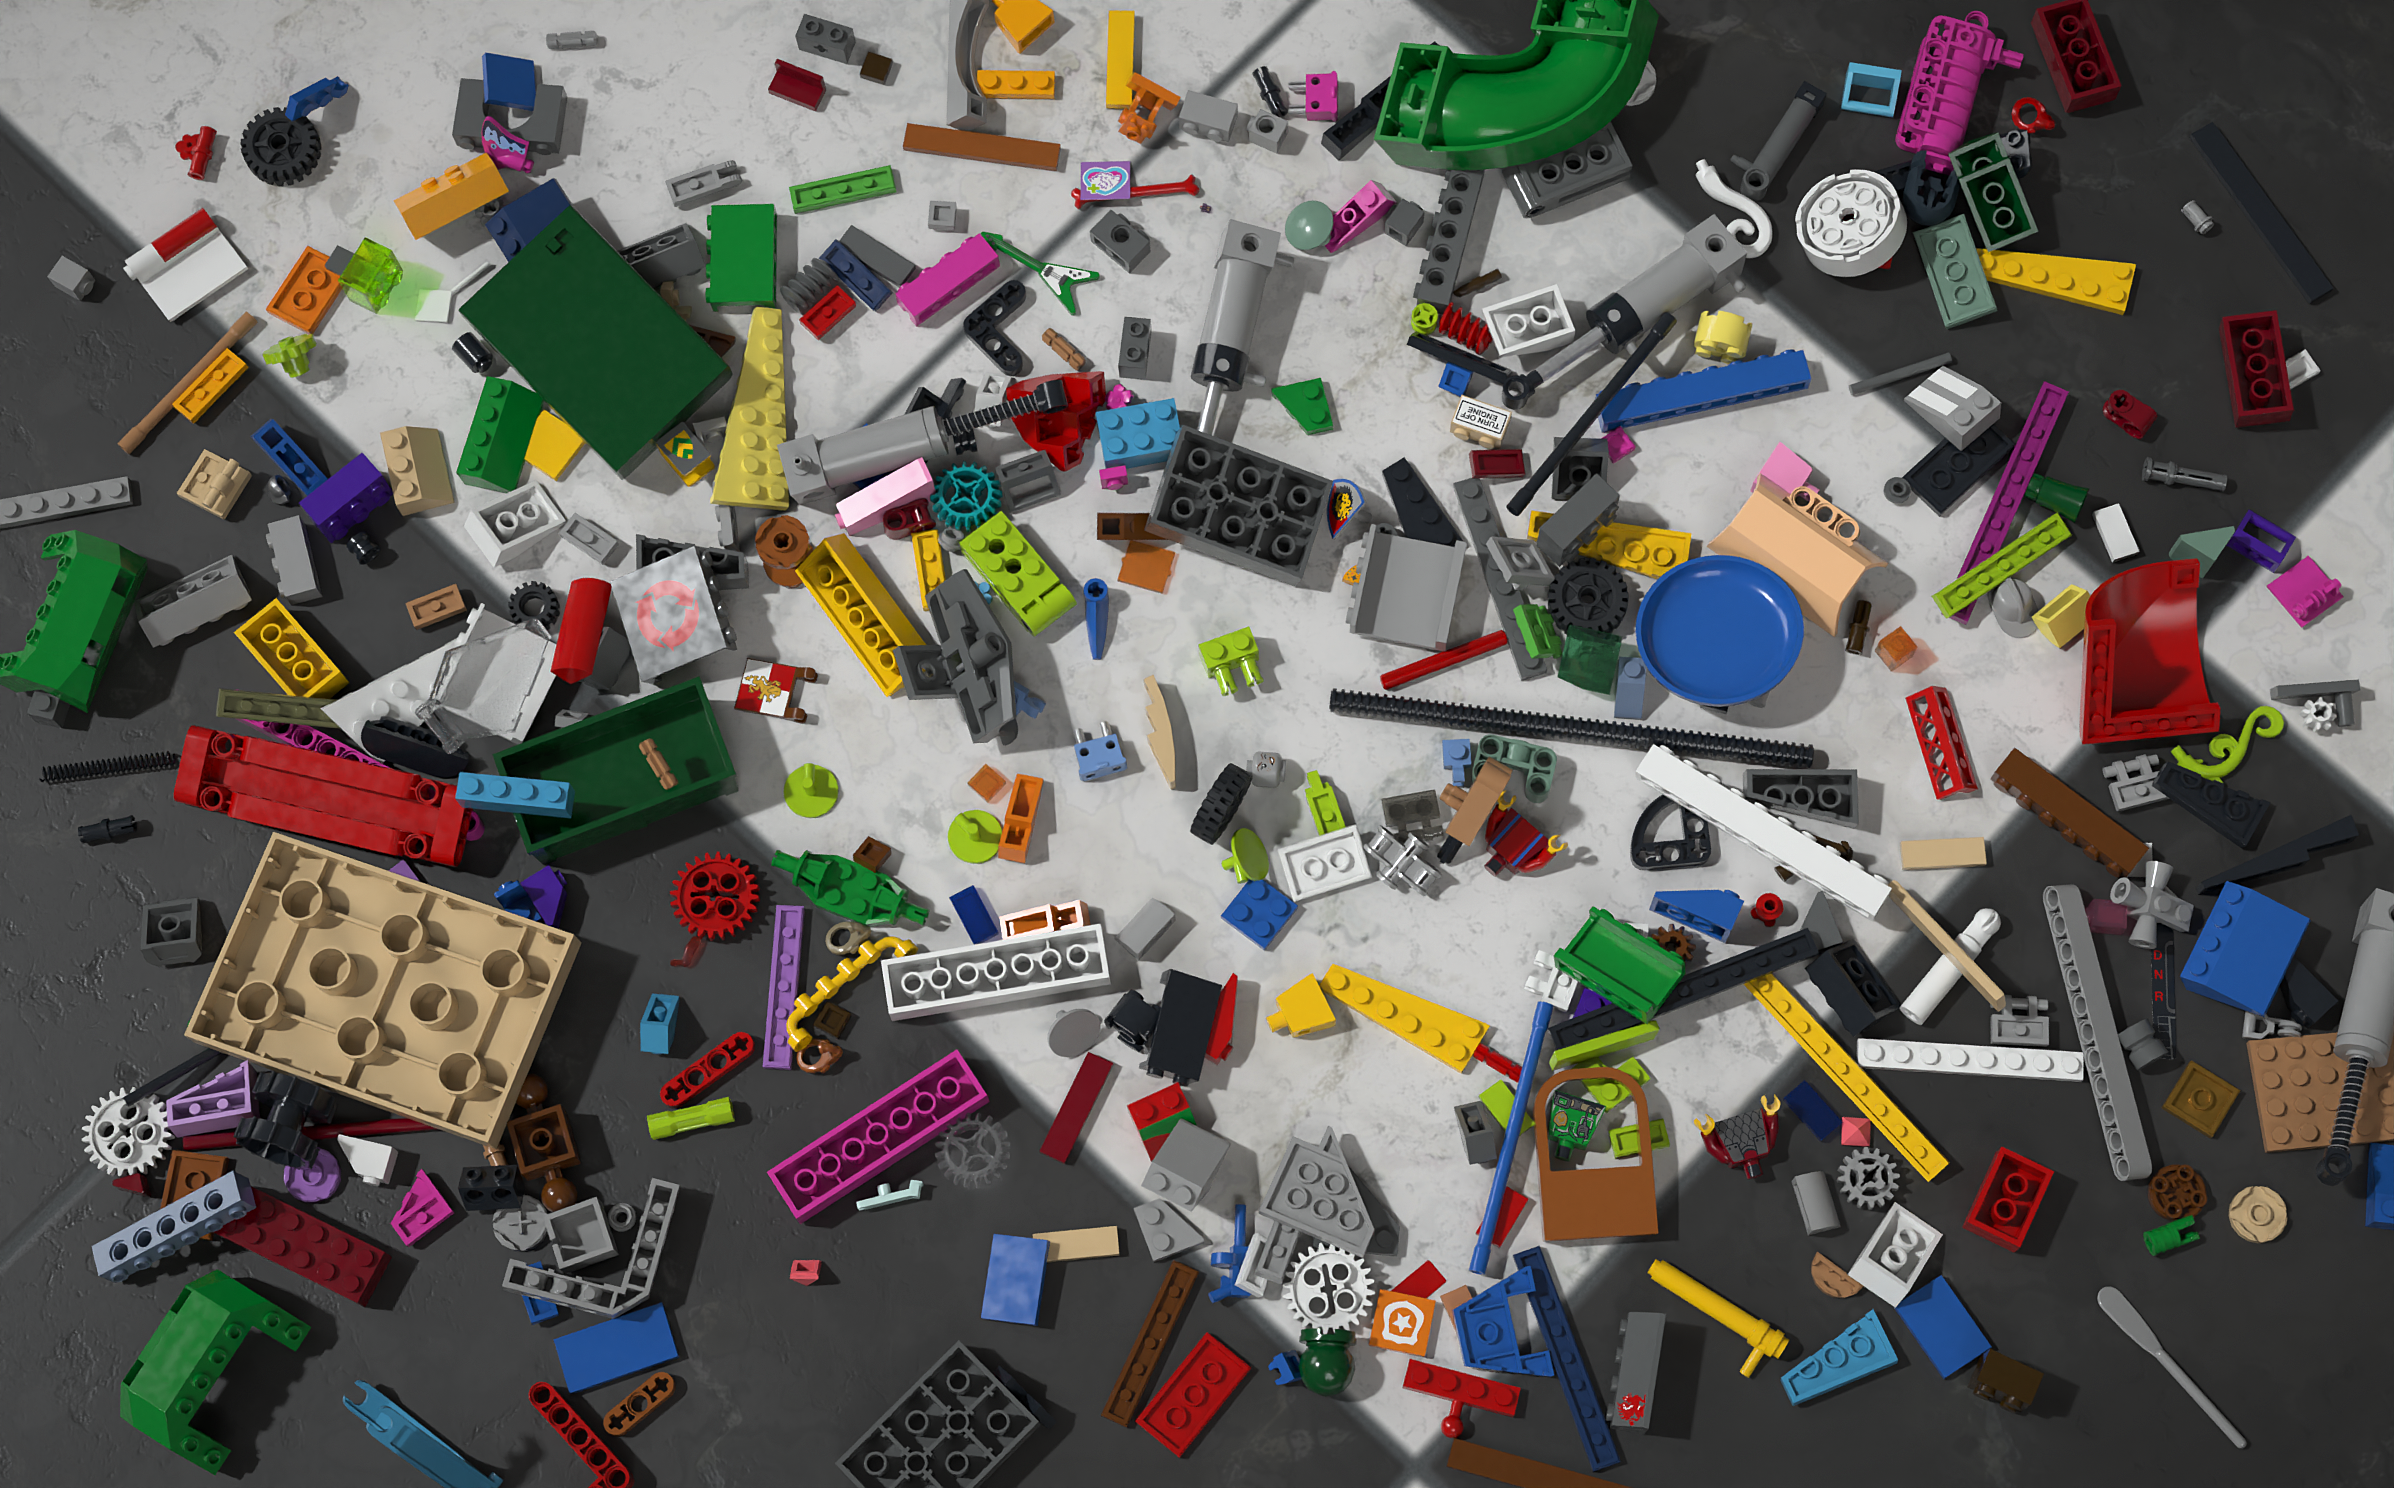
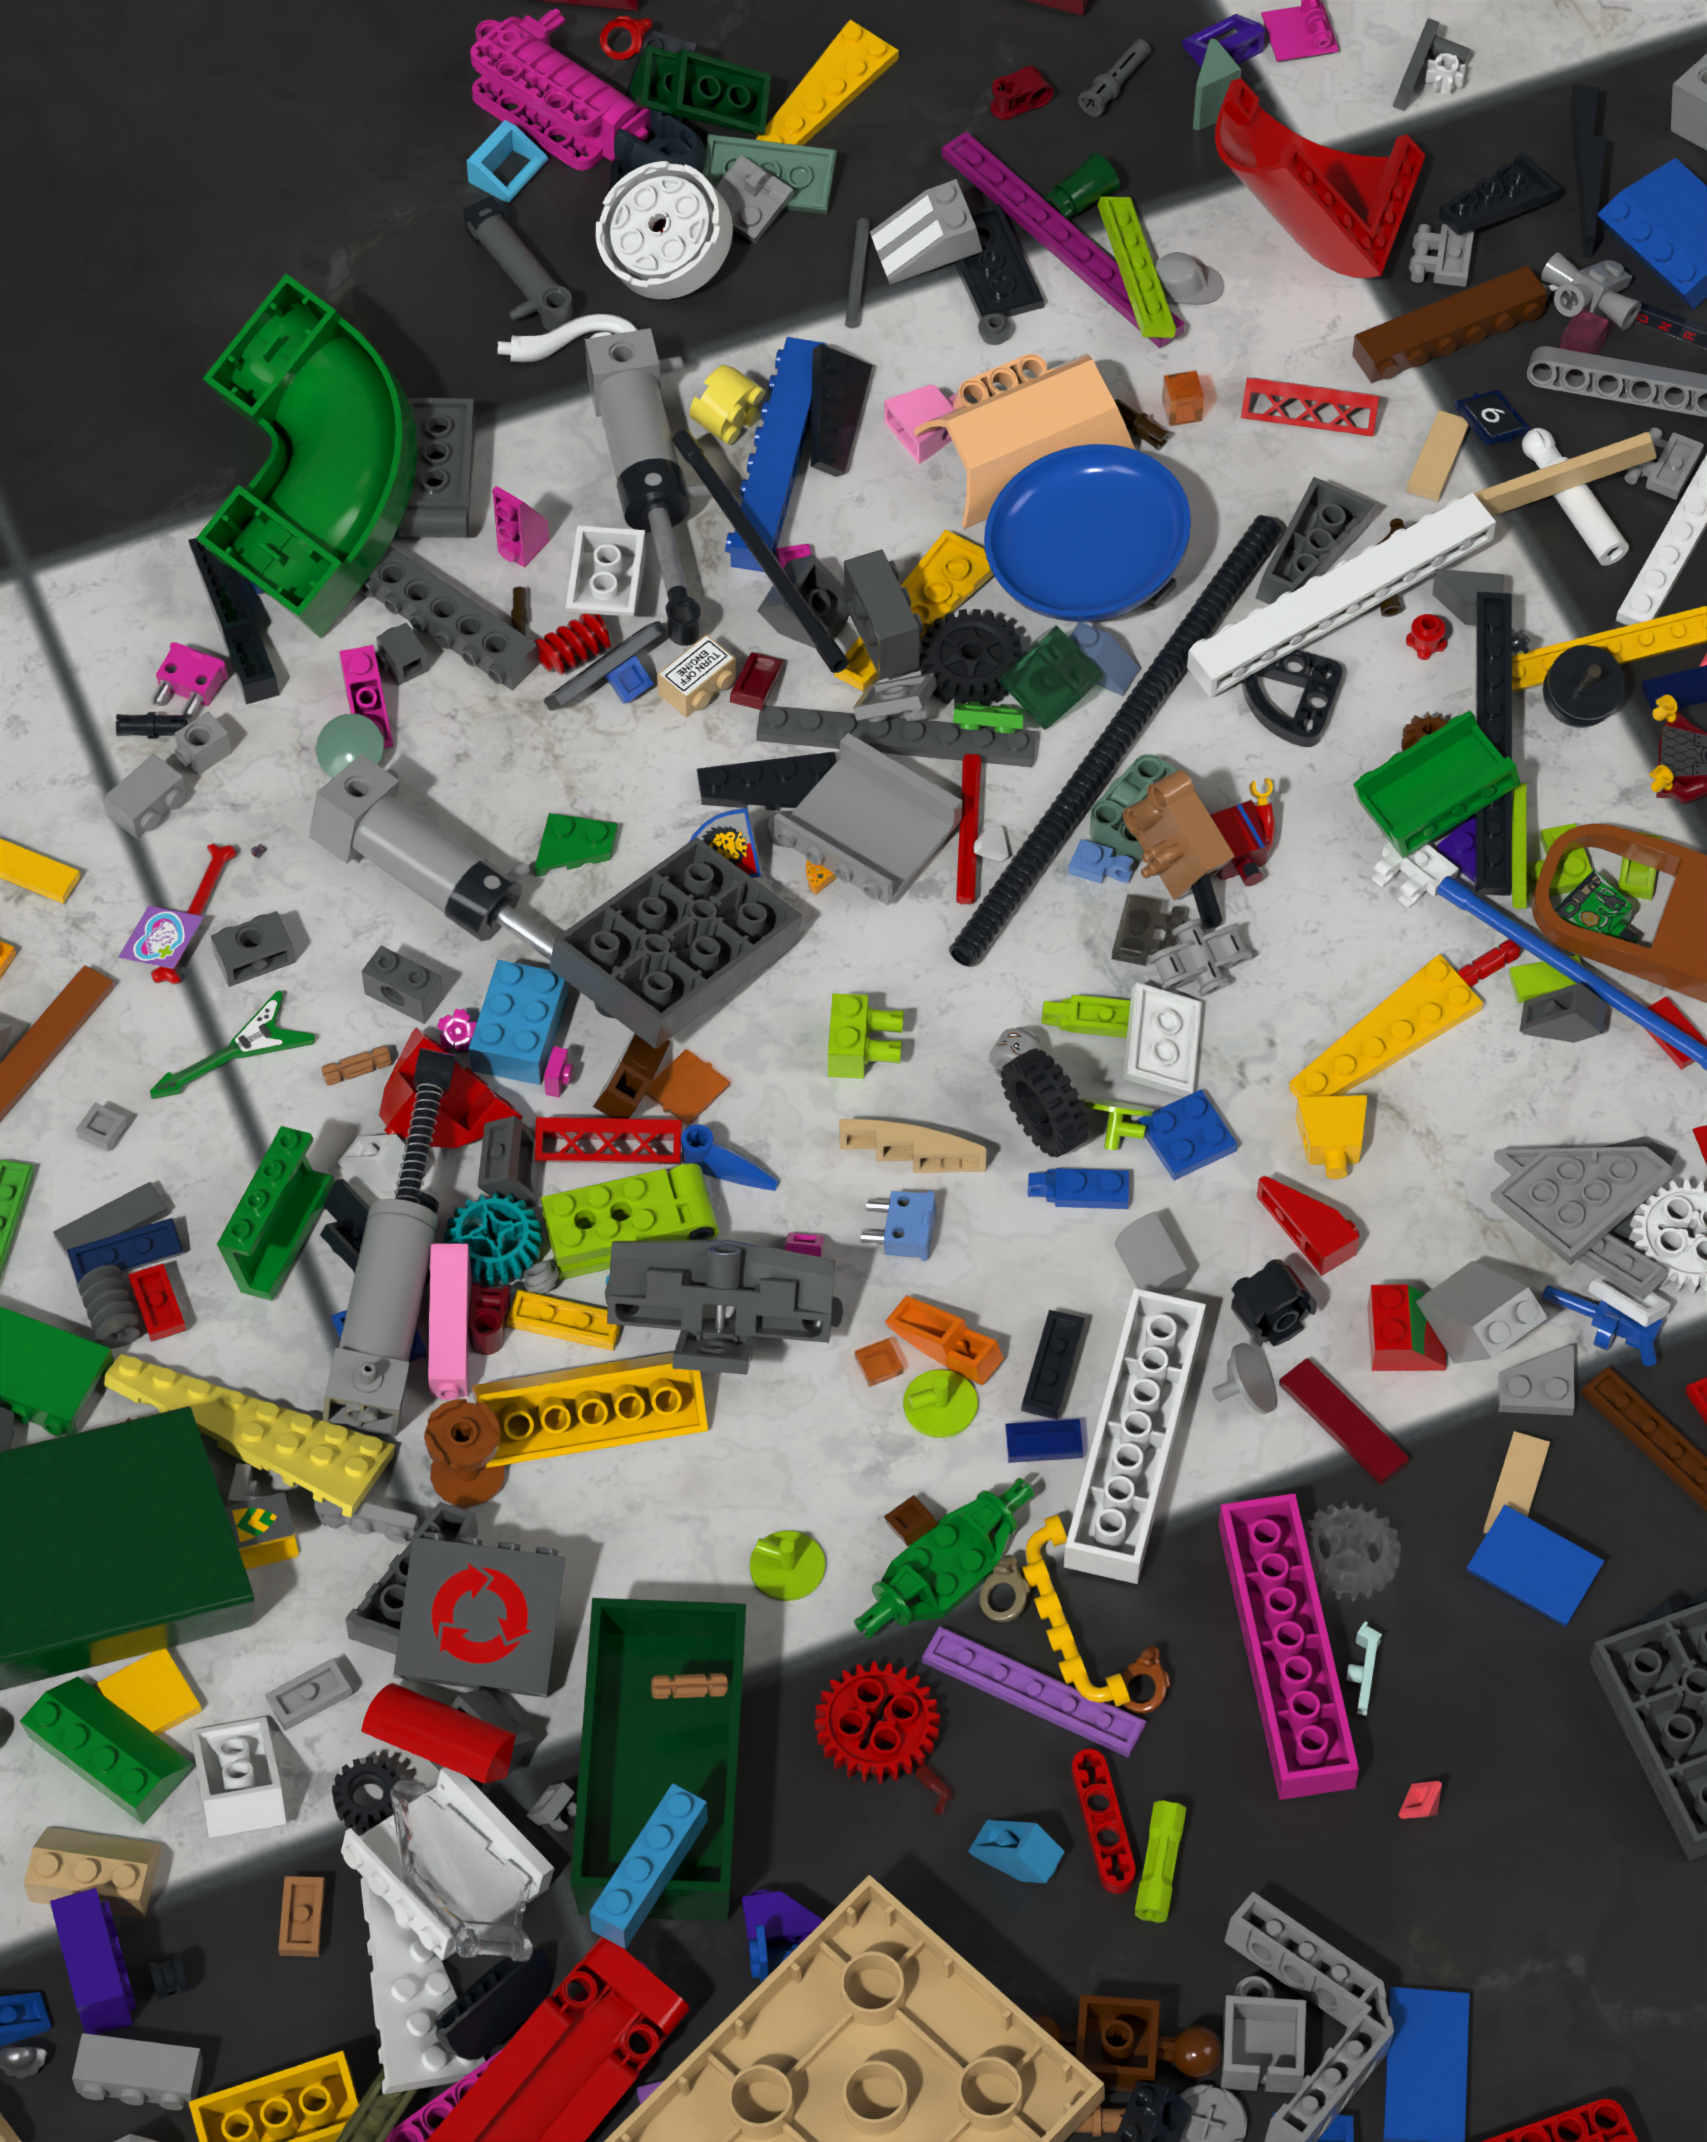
camera: 70 degrees left, 15 degrees down
(639, 1416) = (1493, 2042): dark orange beam -> none
(769, 689) = (626, 1559): flag -> none
(832, 1020) = (1104, 1651): dark brown tile -> none
(913, 352) = (274, 1215): none -> green panel
(947, 279) = (192, 1151): dark pink brick -> none
(988, 331) = (313, 1125): black beam -> none
(1031, 895) = (1053, 1364): none -> black plate
(1045, 919) = (1093, 1362): orange slope -> none
(1050, 696) = (805, 1243): none -> dark pink tile
(1083, 530) = (608, 1131): none -> red fence
(1150, 97) = (87, 841): orange tile -> none
(1182, 1027) = (1306, 1251): black panel -> none
(1183, 859) = (1081, 1188): none -> blue hinge
(1424, 312) = (529, 676): lime wheel -> none
(1436, 680) = (992, 844): none -> white tile
(1540, 245) = (519, 528): none -> dark pink slope
(1701, 910) = (1410, 688): blue slope -> none
(1766, 410) = (837, 400): none -> black wing
(1770, 1037) = (1583, 686): none -> black wheel
(1788, 976) = (1520, 641): none -> black axle
(1852, 987) = (1561, 594): black slope -> none
(1923, 268) = (753, 197): none -> light grey hinge
(1997, 878) = (1492, 417): none -> piece
(2063, 615) = (1220, 238): light yellow brick -> none
(2115, 533) = (1147, 161): white tile -> none
(2236, 749) = (1435, 164): lime plant -> none

